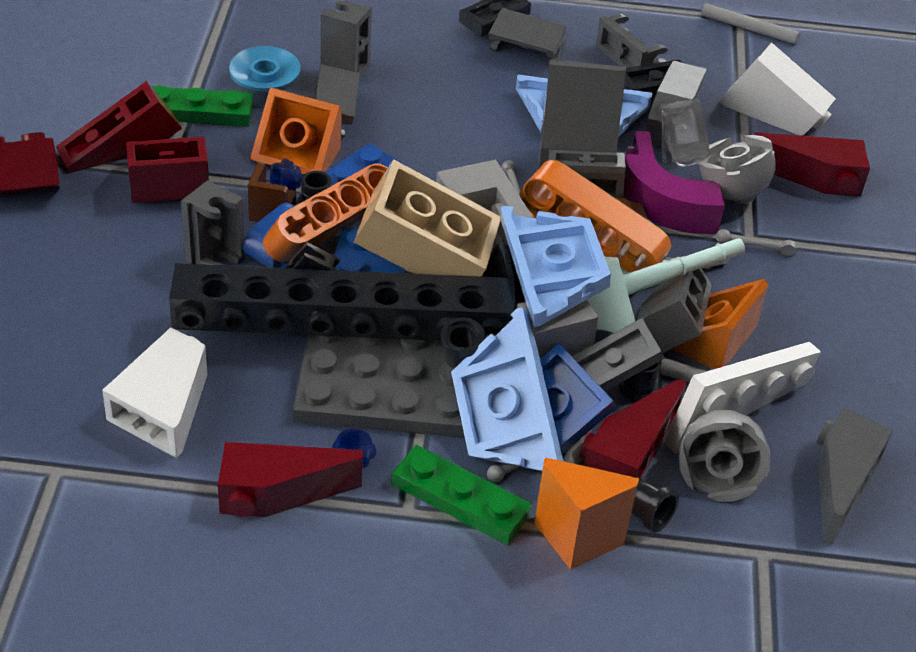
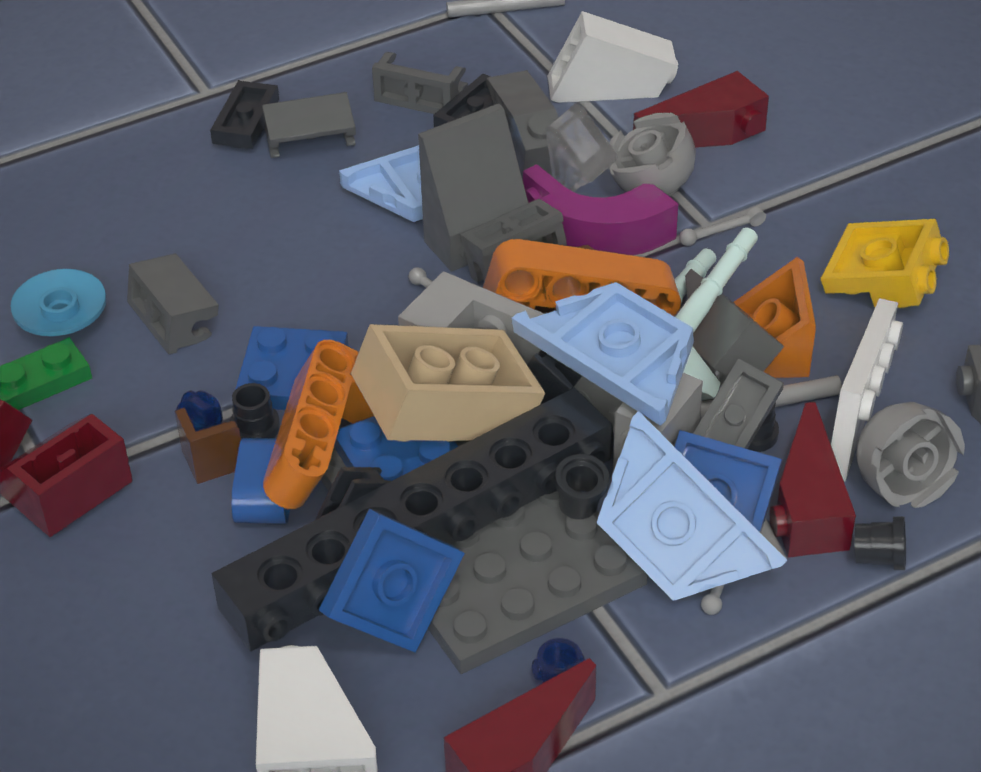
camera: 30 degrees left, 0 degrees up
(213, 225) = (195, 510): dark grey hinge -> none
(280, 330) = (391, 581): none -> blue plate
(298, 131) = (170, 354): orange slope -> none
(346, 37) = (128, 221): dark grey hinge -> none
(461, 494) = (701, 645): green plate -> none
(583, 510) = (843, 588): orange slope -> none
(851, 325) = (887, 260): none -> yellow plate

